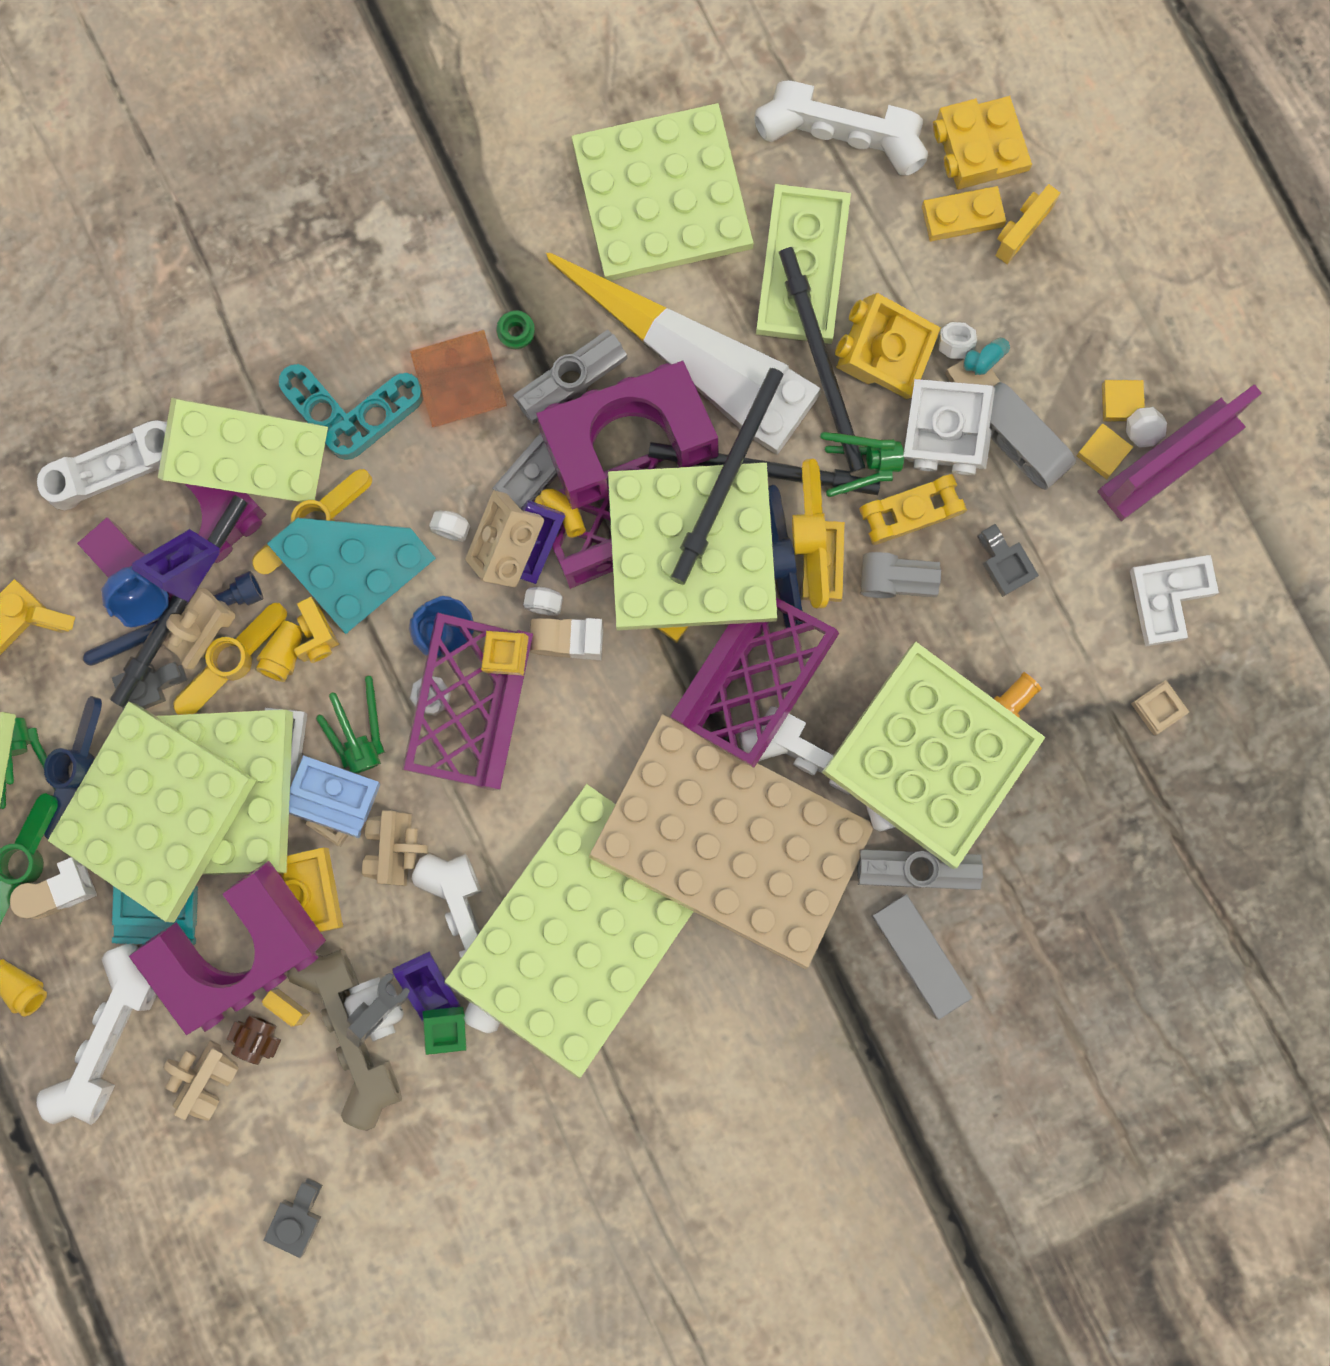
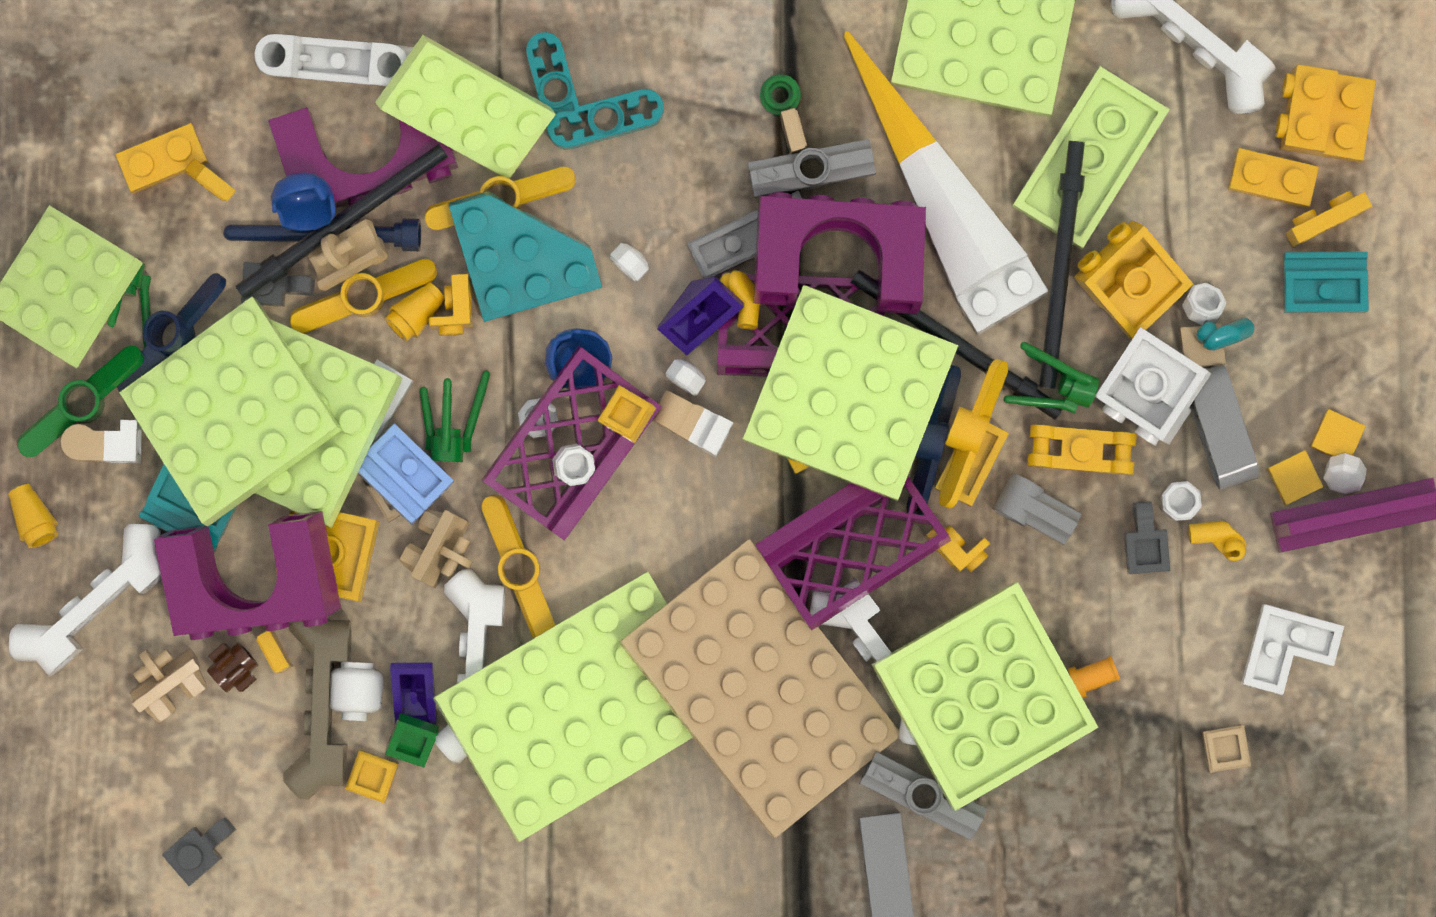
camera: 20 degrees right, 5 degrees up
(179, 564) = (359, 190): dark purple slope -> none
(369, 1018) = (349, 698): dark grey plate -> none
(423, 1080) = (372, 776): none -> yellow tile
(453, 816) = (509, 543): none -> yellow piece
(458, 378) = (702, 119): clear orange slope -> none
(477, 718) = (573, 464): none -> white tile
(503, 541) = (673, 303): tan bracket -> none
(538, 351) = (793, 131): none -> tan tile
(695, 542) = (852, 395): black bar -> none
(849, 647) = (956, 555): none -> yellow bracket
(1018, 514) = (1180, 501): none -> white tile
(1050, 277) = (1325, 282): none -> teal plate
(1067, 528) = (1221, 535): none -> yellow arm

